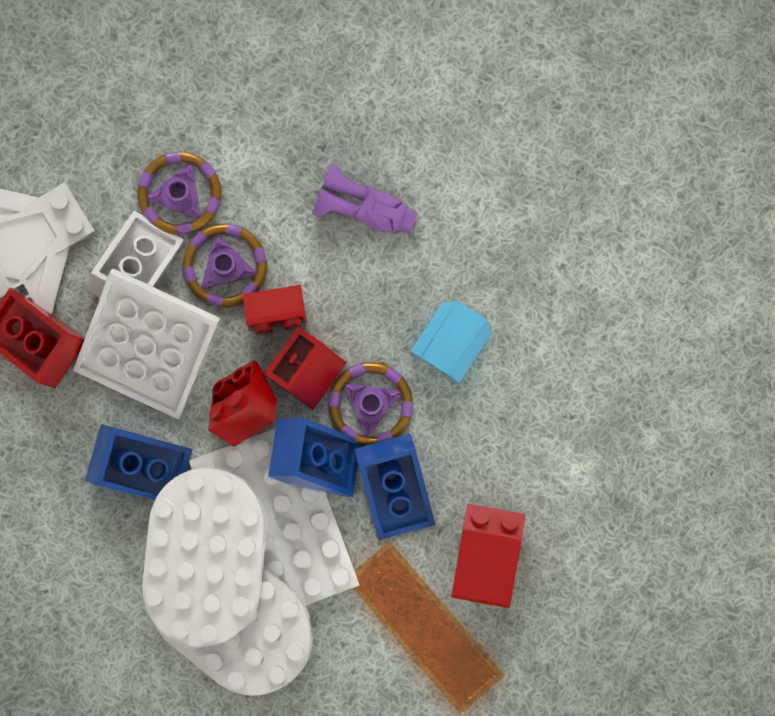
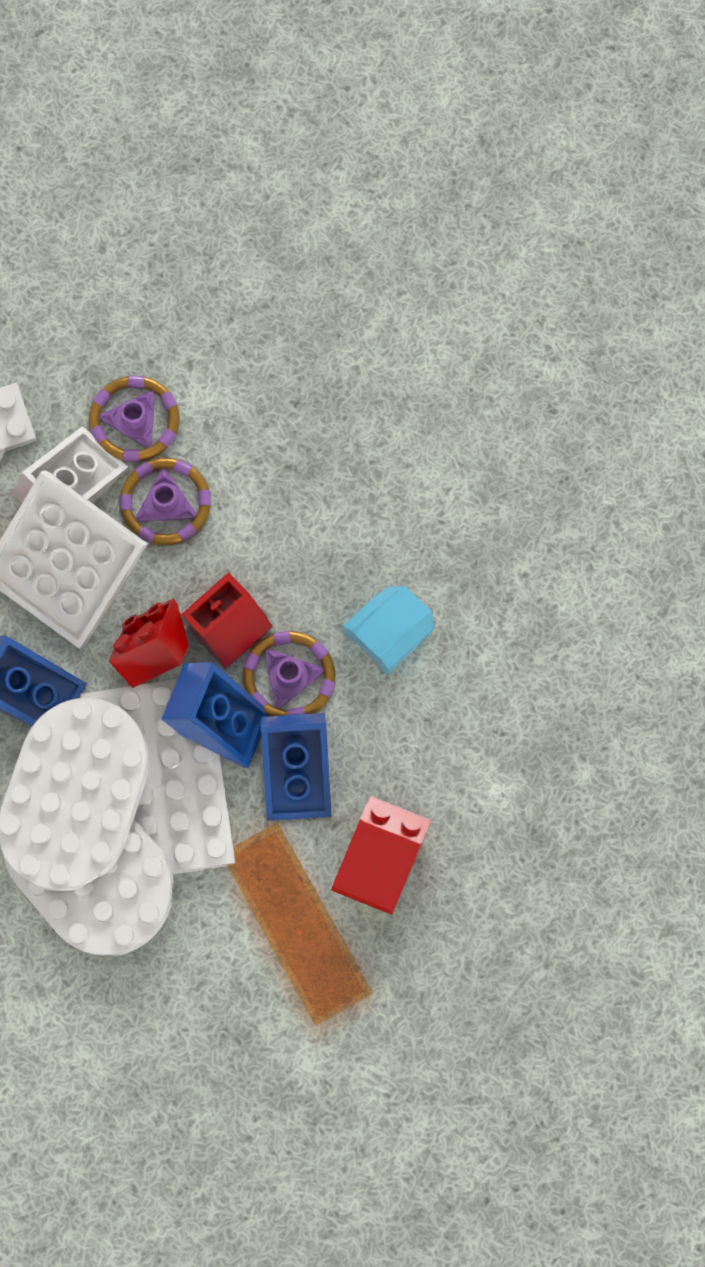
camera: 10 degrees right, 10 degrees down
(274, 309) = (207, 554): red slope -> none
(378, 209) = (339, 474): medium lavender piece -> none

